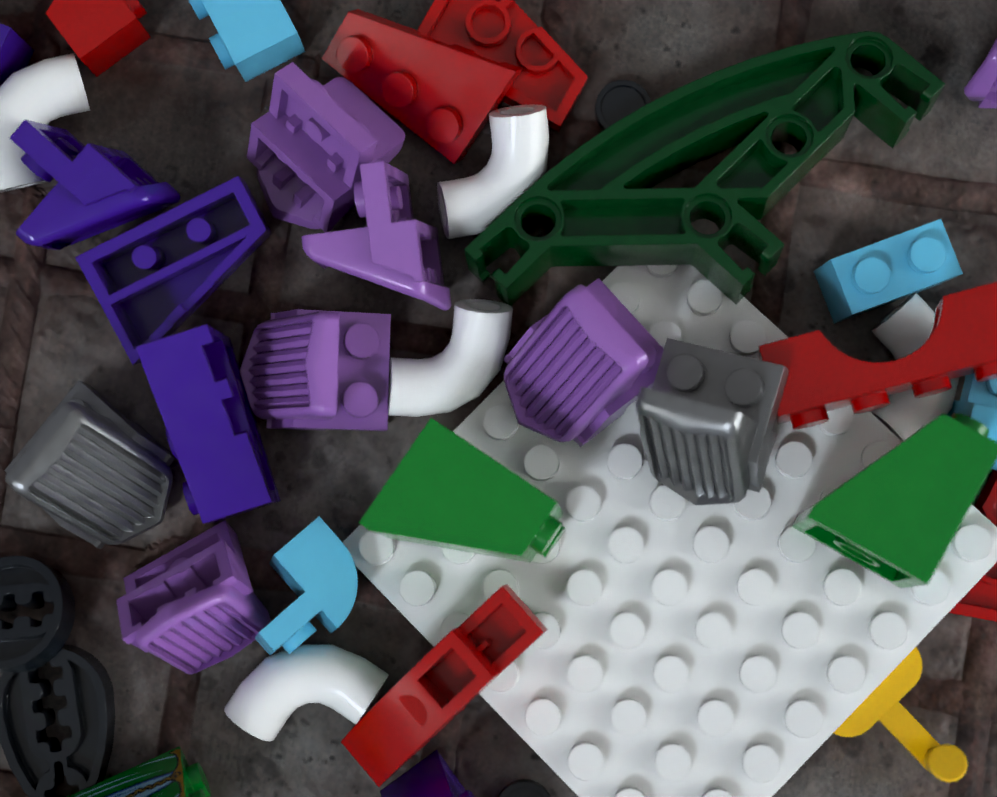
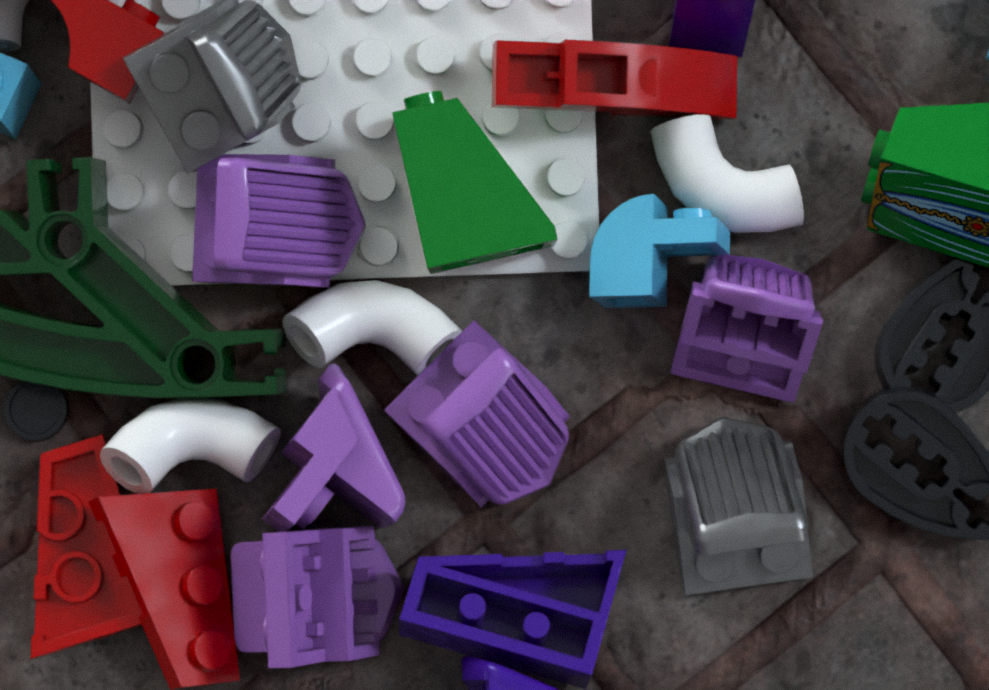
camera: 130 degrees left, 5 degrees down
(209, 423) = (612, 450): dark purple wedge -> none

